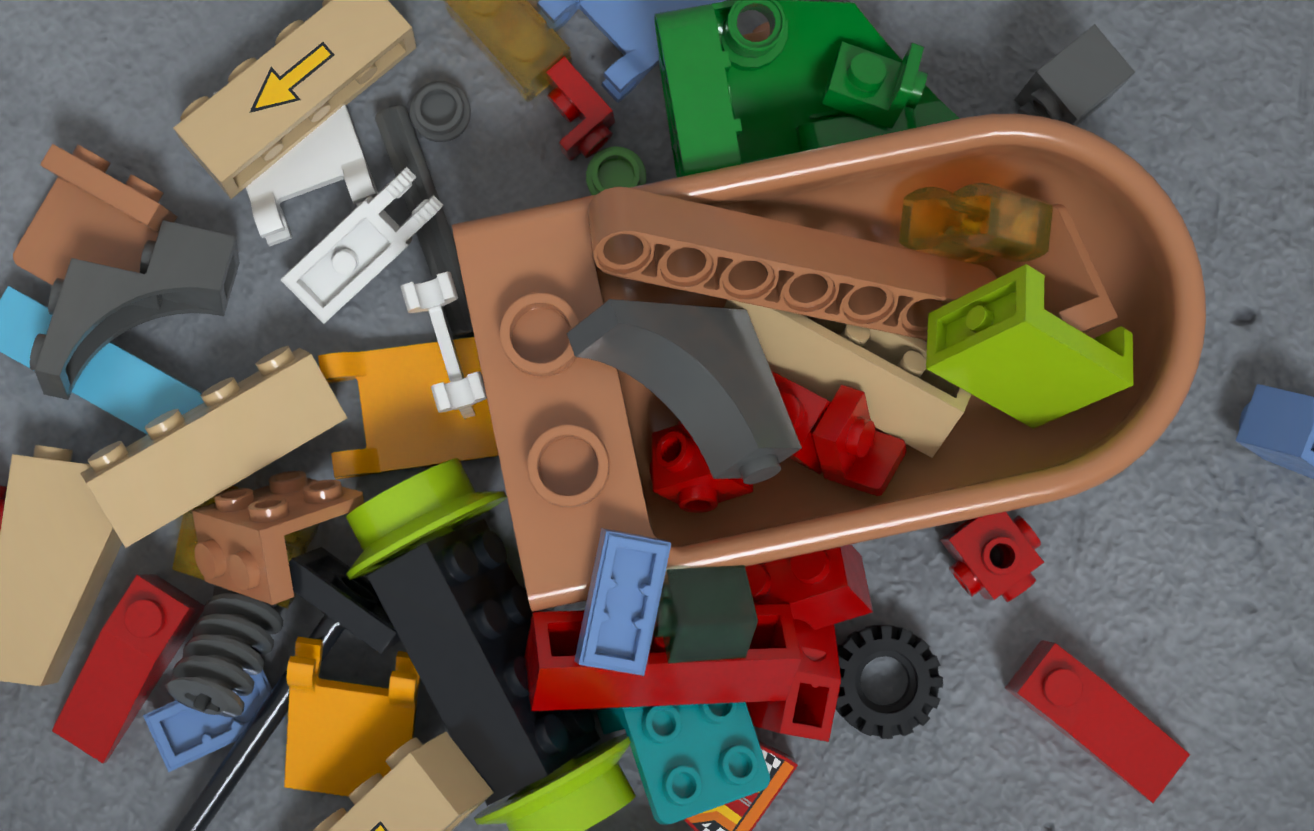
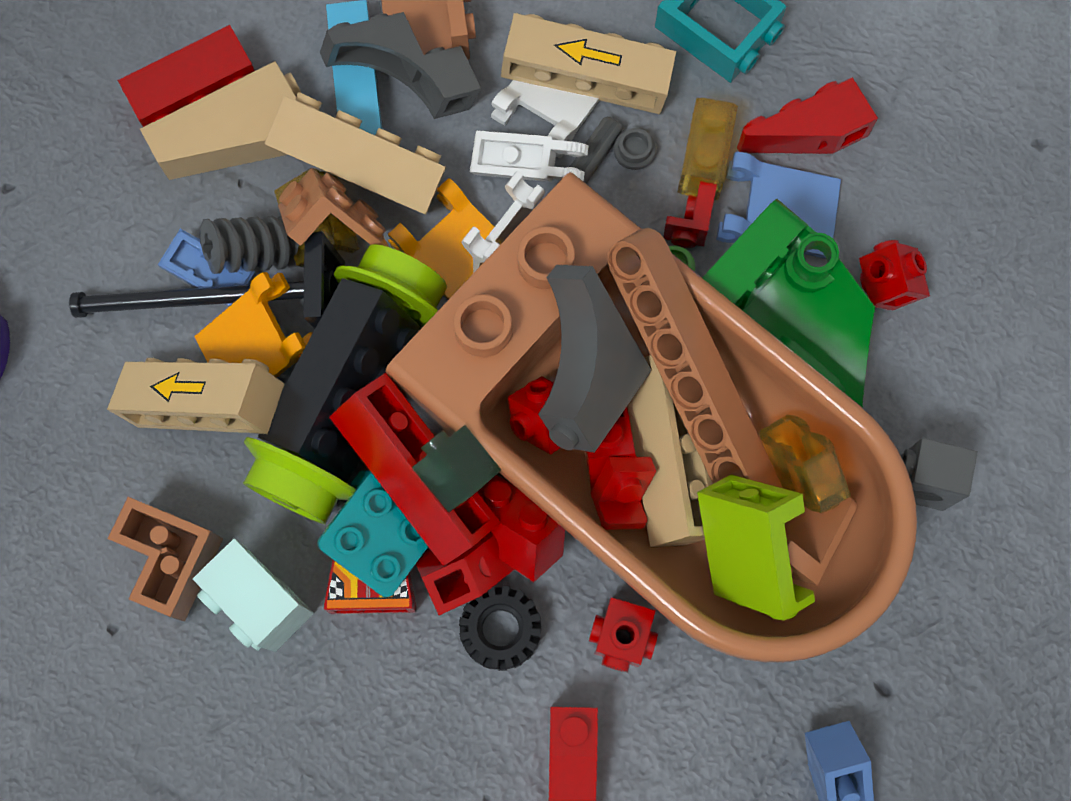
camera: 55 degrees right, 10 degrees down
(126, 664) = (200, 197): red slope -> none
(622, 602) = (426, 411): medium blue plate -> none
(874, 84) = (838, 353): green bracket -> none

